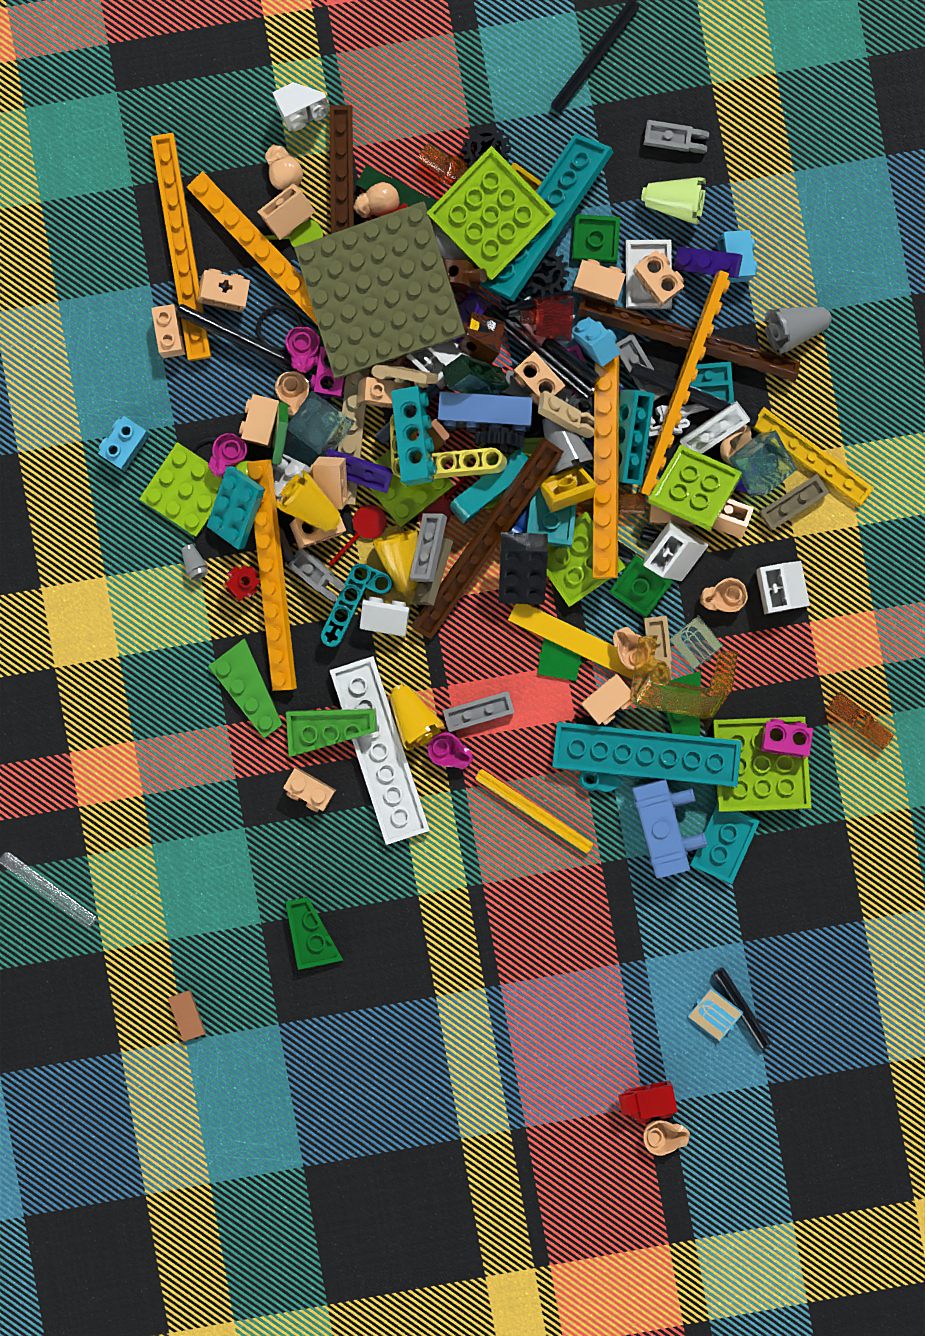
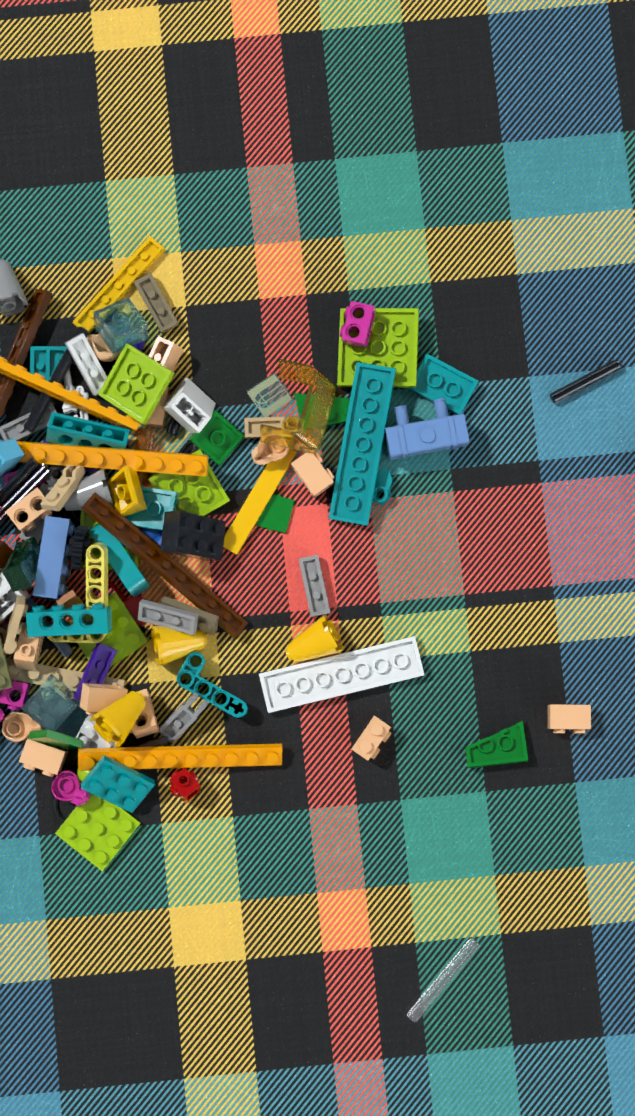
camera: 85 degrees left, 5 degrees down
(123, 443) = (51, 881): medium azure brick -> none
(186, 1015) = (562, 863): nougat tile -> none
(194, 563) = (163, 826): light grey cone -> none
(246, 686) = (275, 788): bright green wing -> none
(321, 728) = (318, 722): bright green wing -> none
(350, 1013) = (569, 717): none -> light nougat brick
(368, 523) = (141, 669): red piece -> none
(384, 617) = (225, 660): white slope -> none
(448, 751) = (347, 613): dark pink hair -> none
(534, 811) = (404, 545): yellow axle -> none
(715, 1014) = (589, 404): piece -> none
(726, 596) = (231, 365): light nougat hair -> none
(782, 587) = (228, 318): white slope -> none
(849, 711) = (355, 253): clear orange piece -> none

